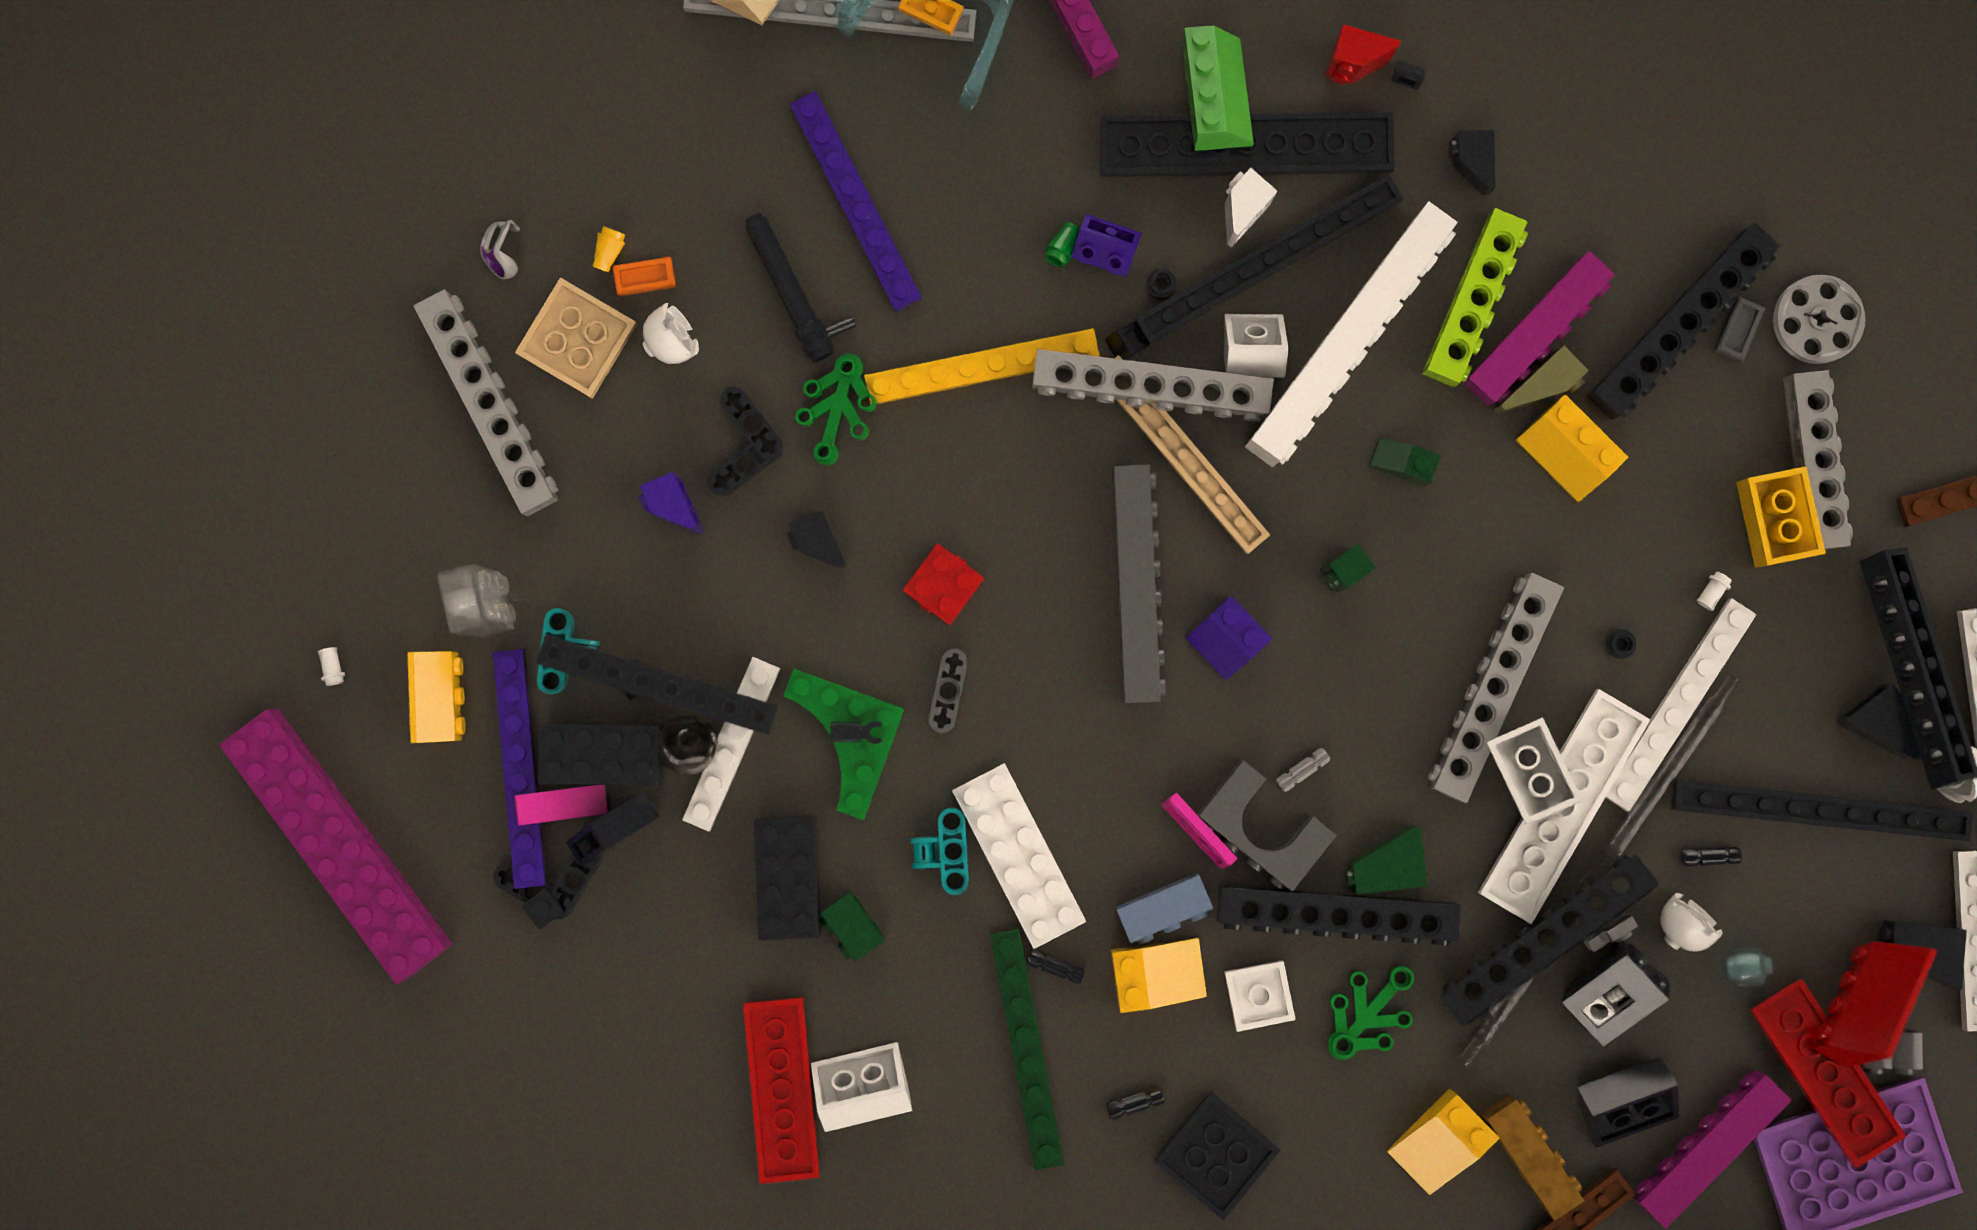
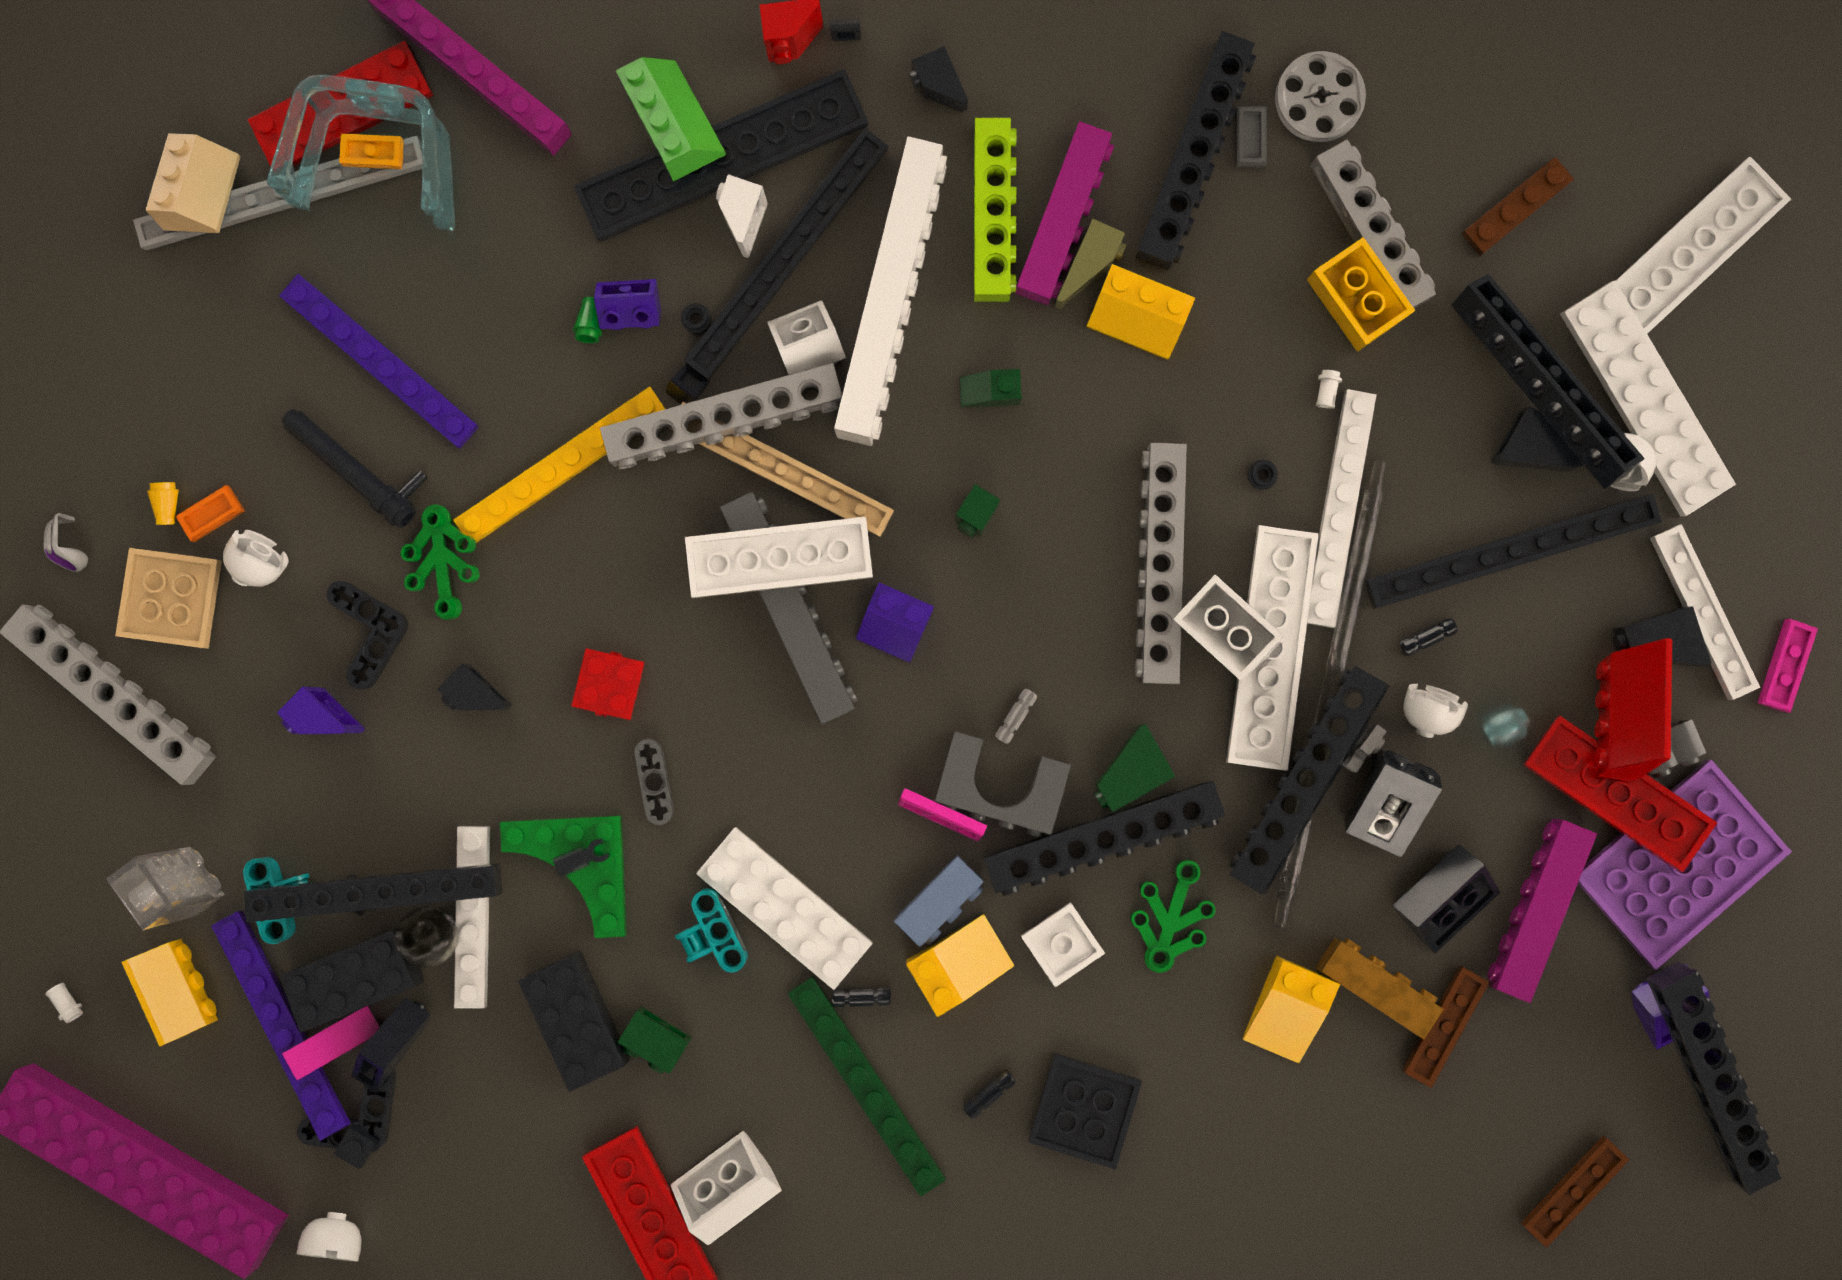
camera: 15 degrees left, 0 degrees up
(486, 982) = (331, 1238): none -> white cylinder
(1150, 535) = (778, 557): none -> white plate

